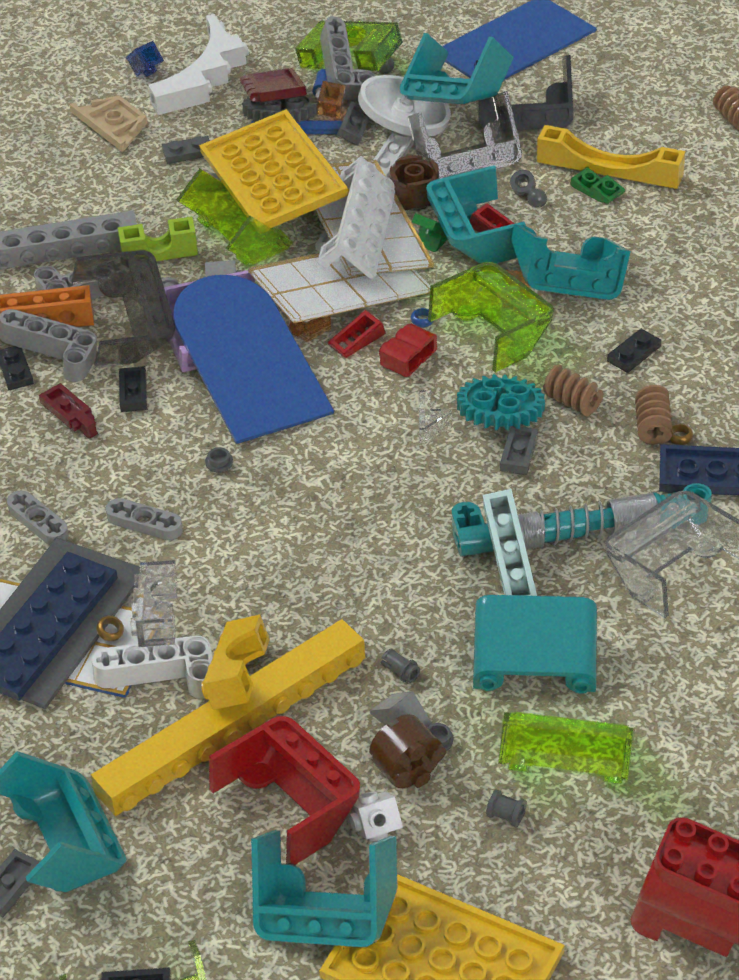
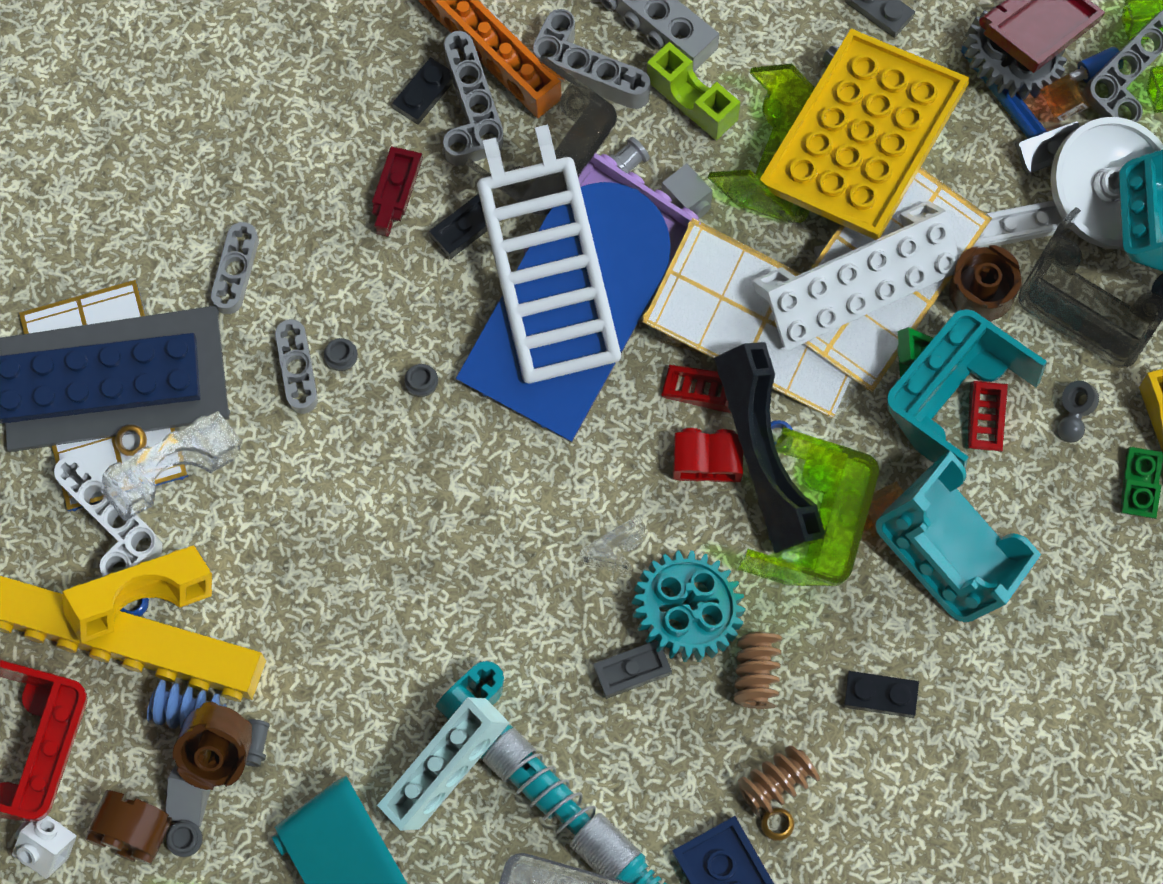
camera: 55 degrees right, 25 degrees up
(148, 302) = (588, 259): none -> white bar
(158, 491) = (340, 354): none -> dark grey plate
(340, 684) = (174, 707): none -> medium blue piece
(381, 292) = (748, 384): none -> black arch
(391, 665) = (212, 746): none -> reddish brown brick

